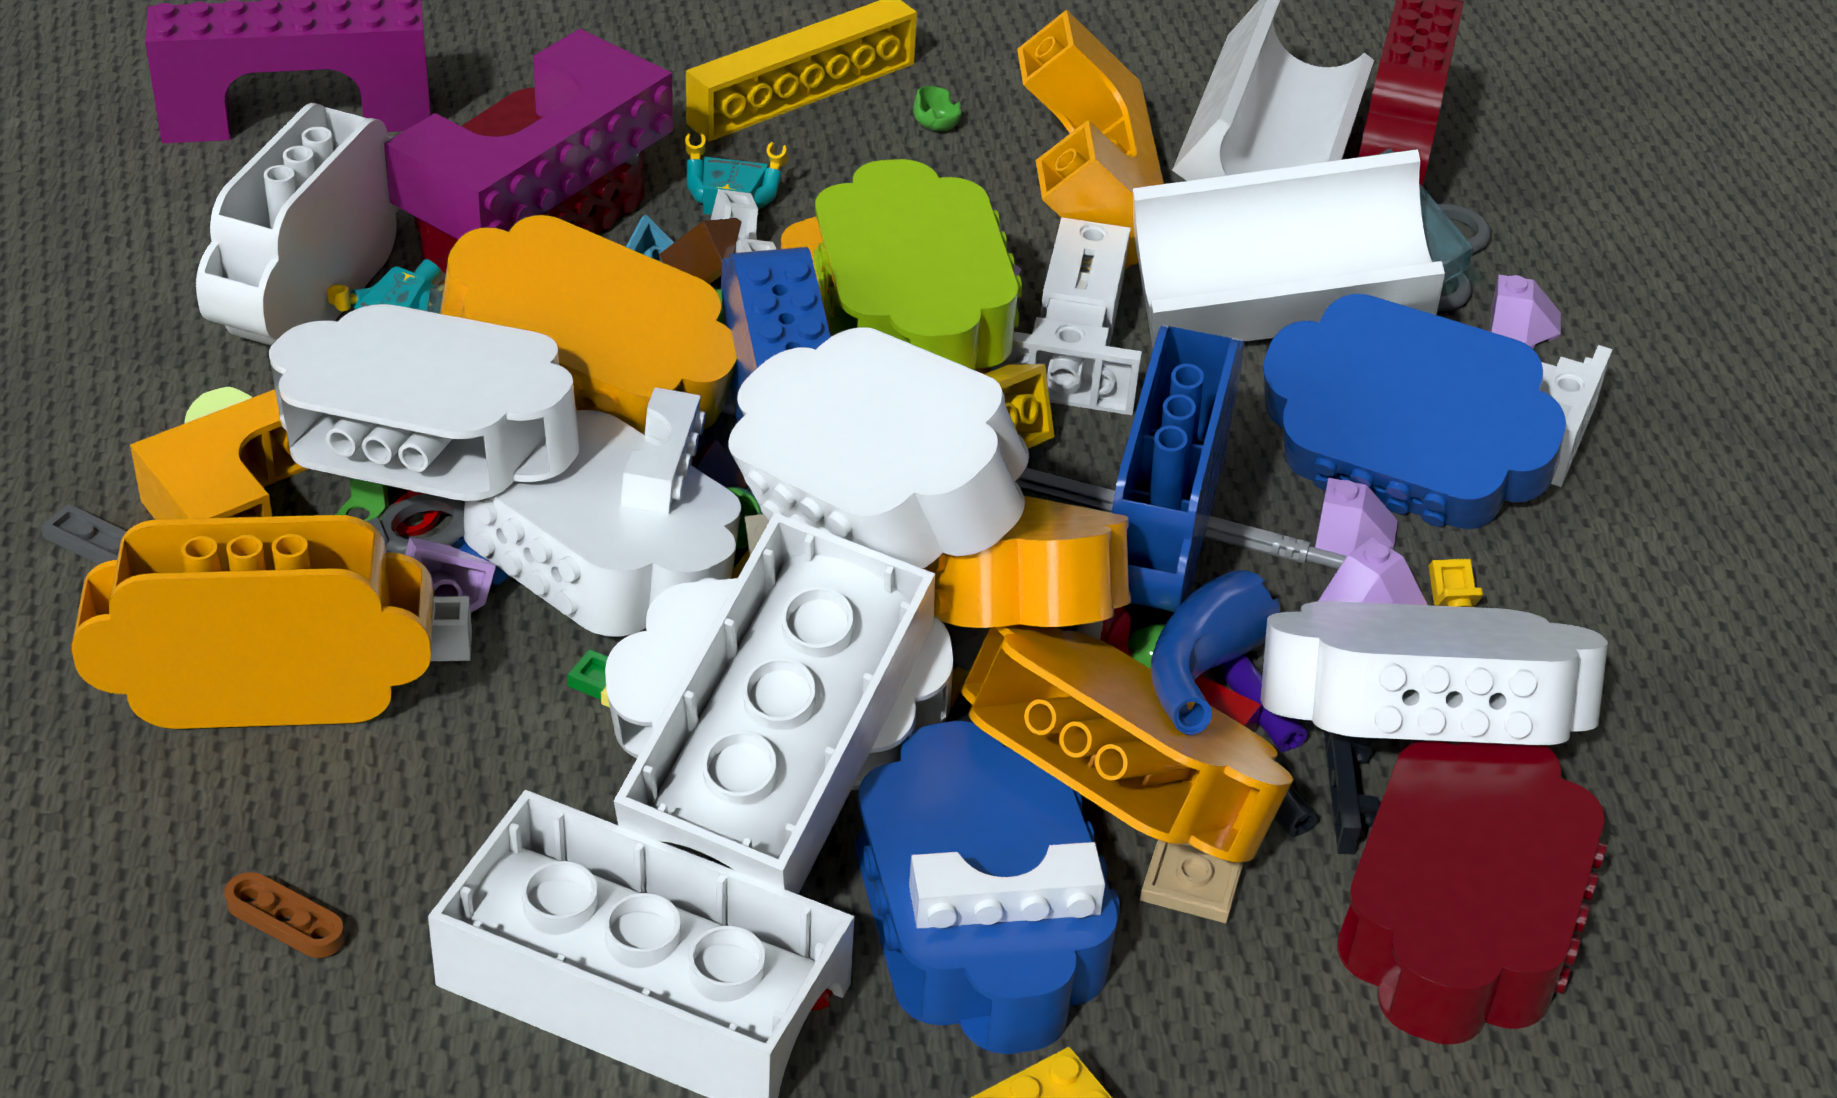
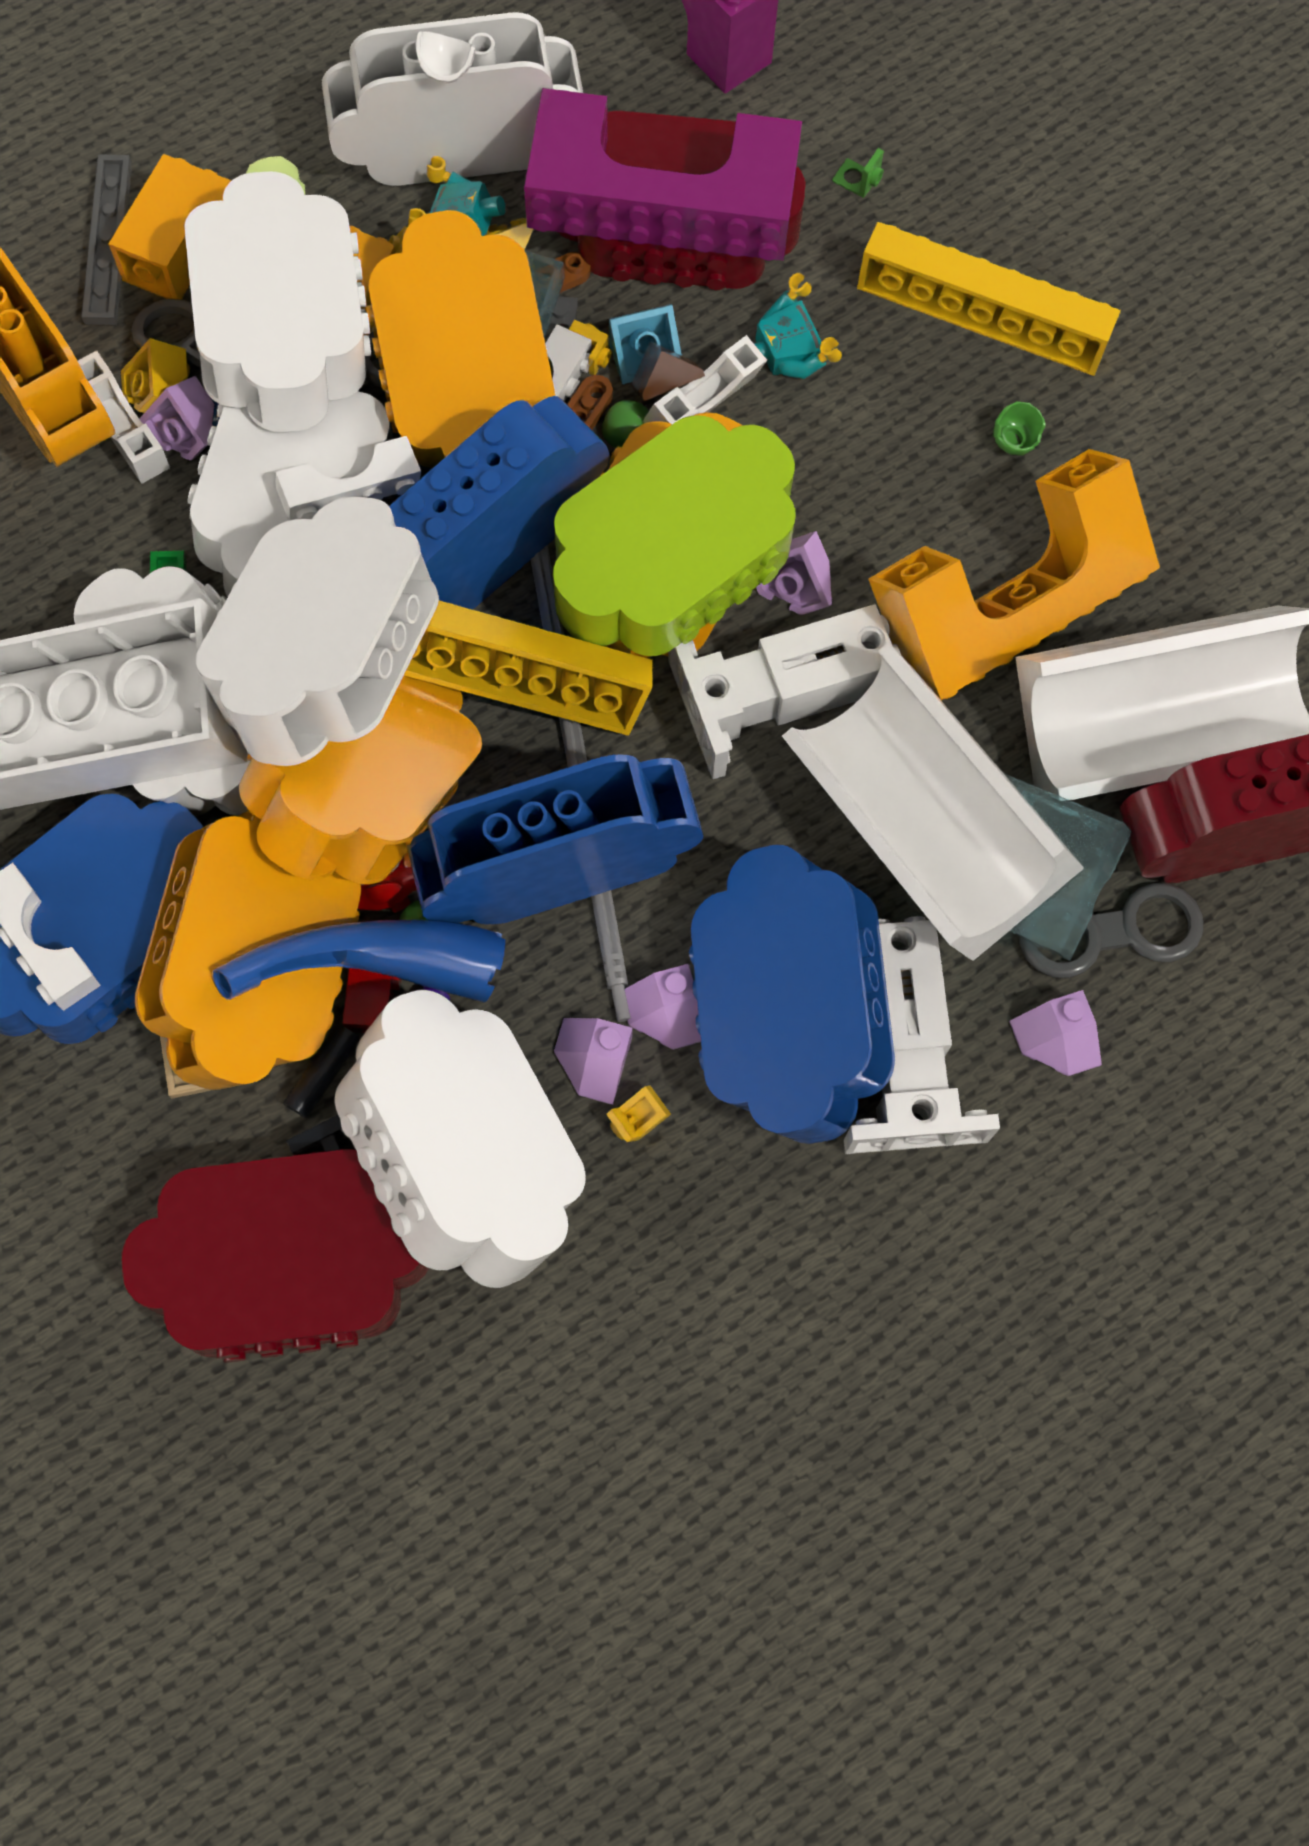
camera: 60 degrees right, 30 degrees up
(322, 148) = (443, 56): none -> white helmet

